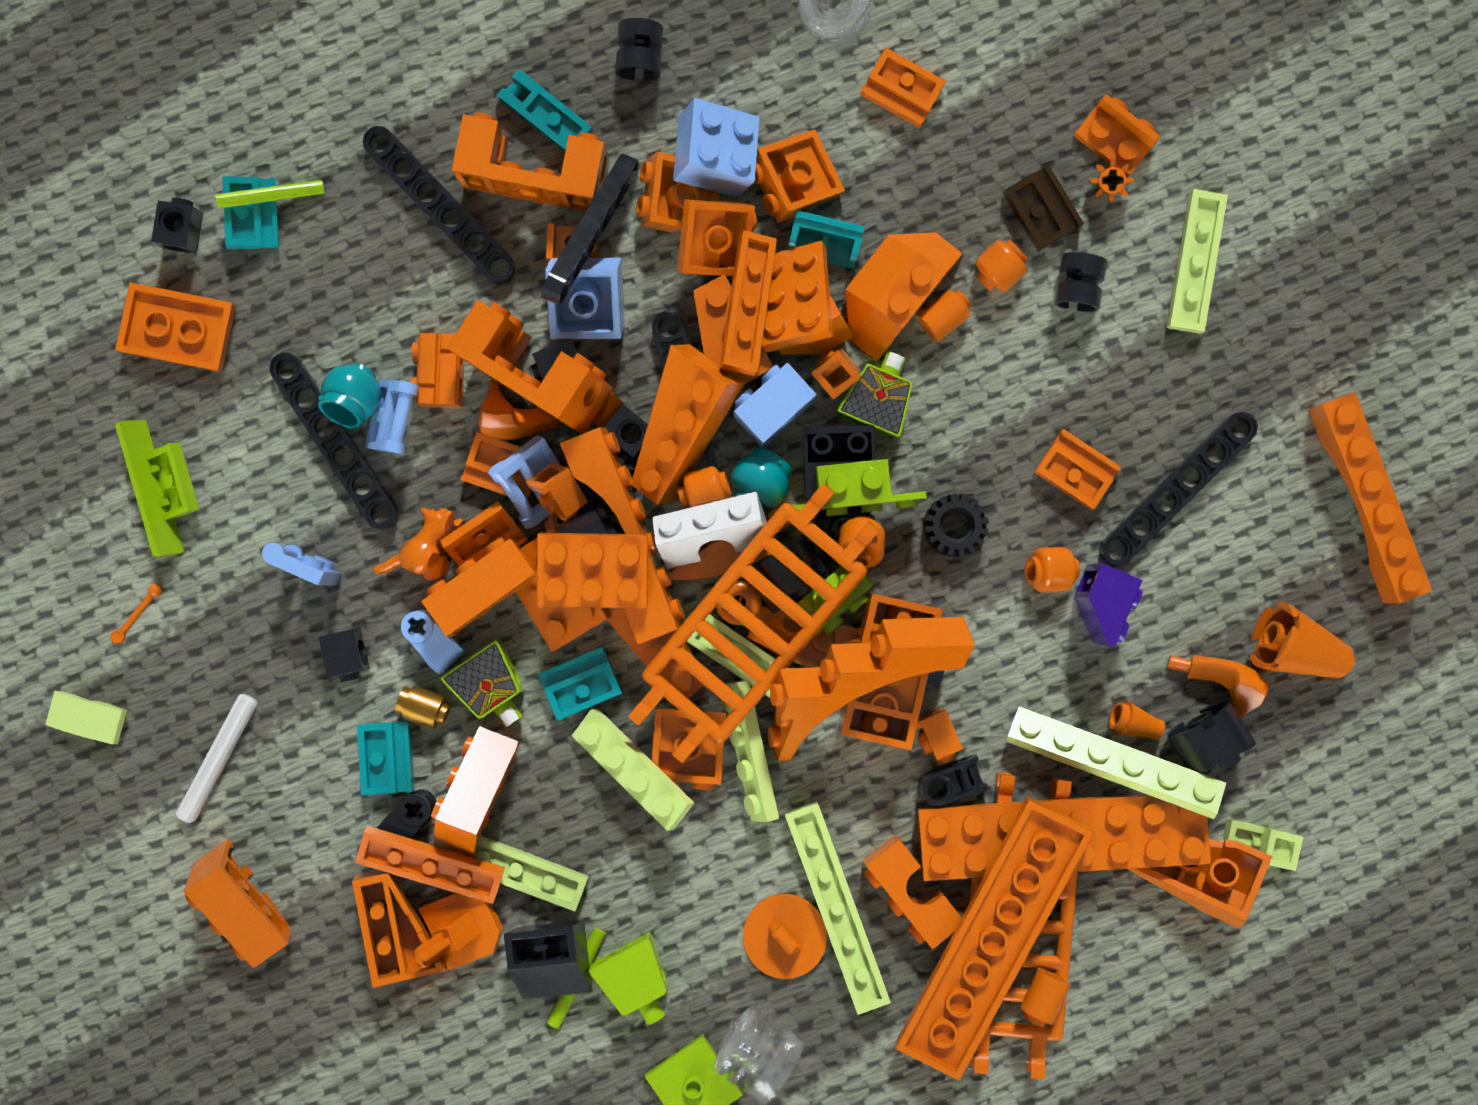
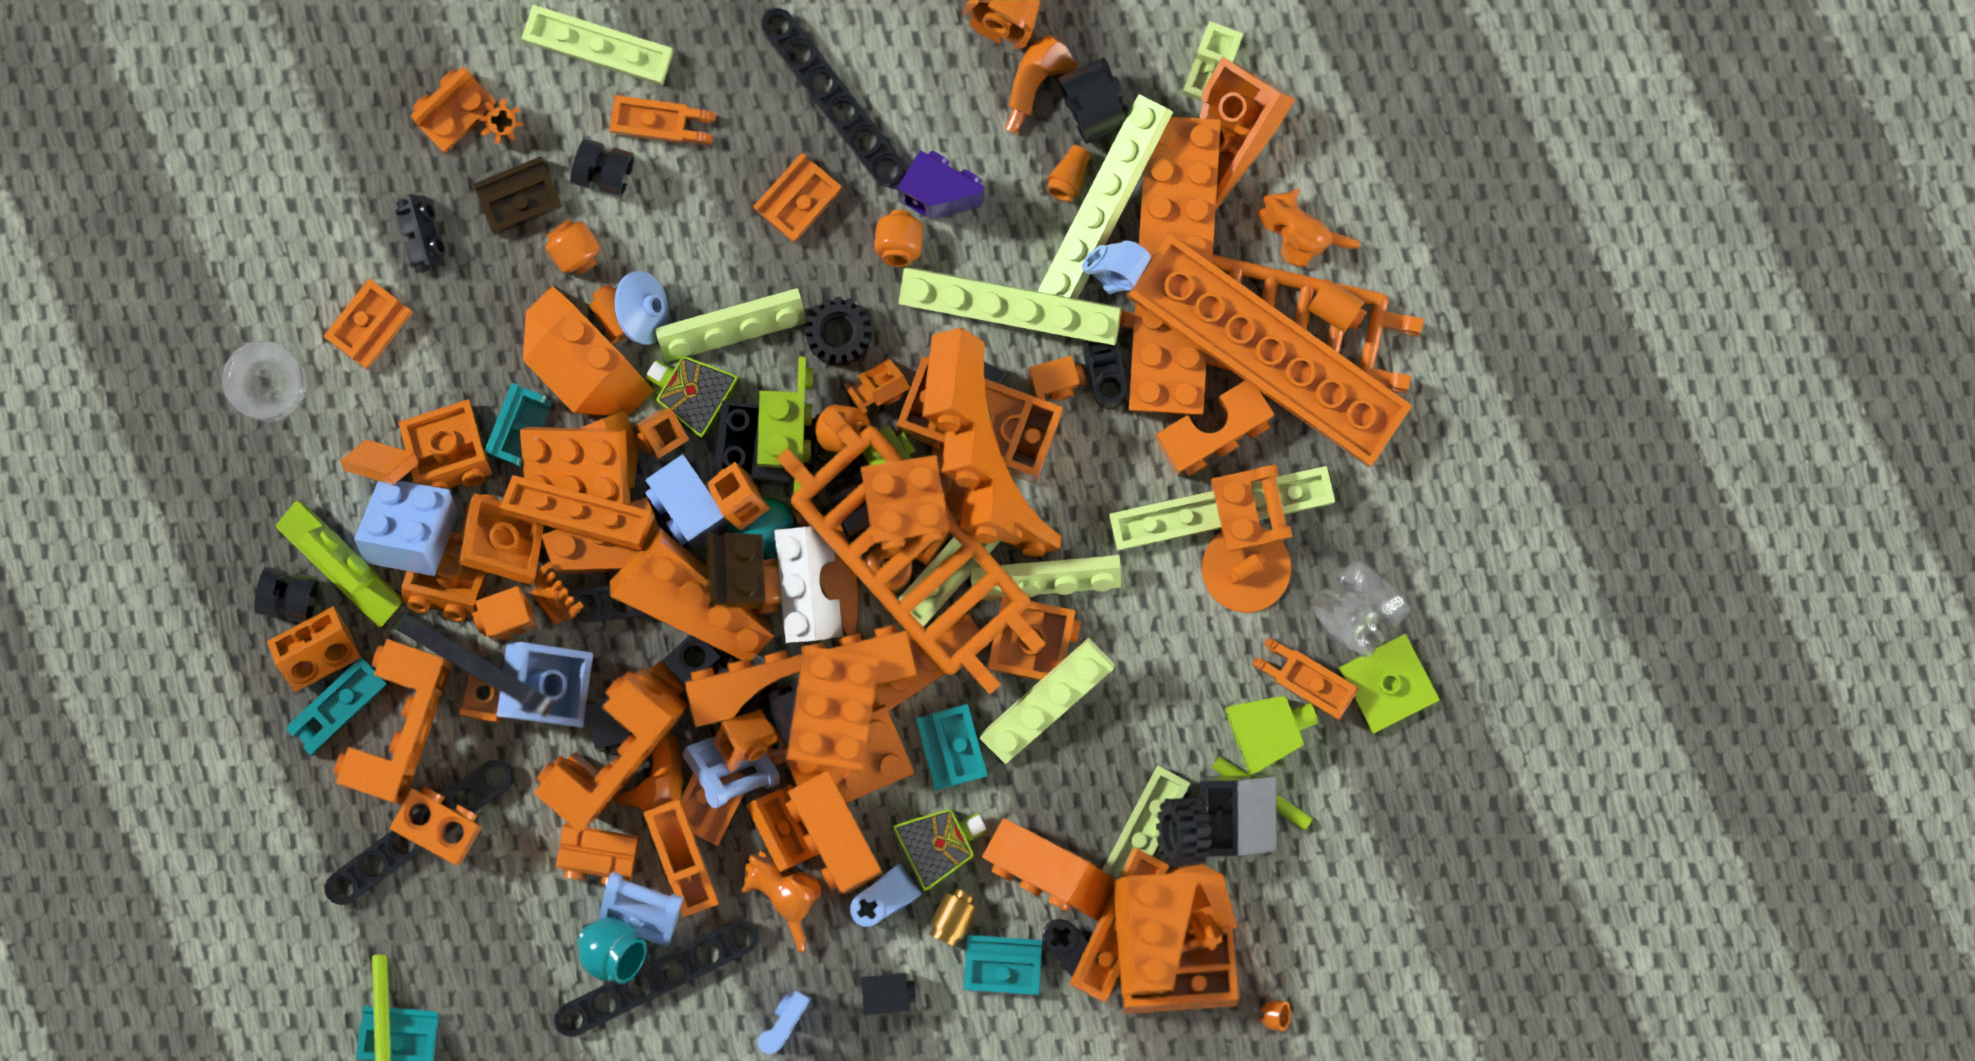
camera: 85 degrees left, 5 degrees down
(372, 1016) = (1272, 1015): none -> orange hinge
(423, 901) = (1151, 929): none -> orange wedge
(431, 215) = (432, 834): none -> orange brick
(442, 448) = (681, 857): none -> orange slope
(523, 915) = (1183, 831): none -> black tyre
(591, 81) = (313, 649): none -> orange brick
(645, 251) = (504, 614): none -> orange brick
(670, 295) = (554, 596): none -> orange piece
(675, 94) = (339, 563): none -> lime bracket
(685, 1011) = (1309, 680): none -> orange hinge
(711, 459) = (735, 570): none -> dark brown plate
(773, 115) = (379, 462): none -> orange tile
(783, 451) = (737, 496): none -> orange brick
(797, 613) = (905, 501): none -> orange plate
(835, 926) = (1239, 513): none -> orange plate
(909, 571) = (878, 384): none -> orange plate
(948, 424) = (731, 325): none -> yellowish green plate
(952, 337) = (641, 307): none -> light blue dish
(1002, 685) = (1010, 305): none -> yellowish green plate
(1009, 118) = (417, 216): none -> black hinge
(1055, 784) = (1117, 265): none -> light blue piece
(1111, 950) = (1301, 233): none -> orange animal
(1132, 328) = (658, 120): none -> orange hinge

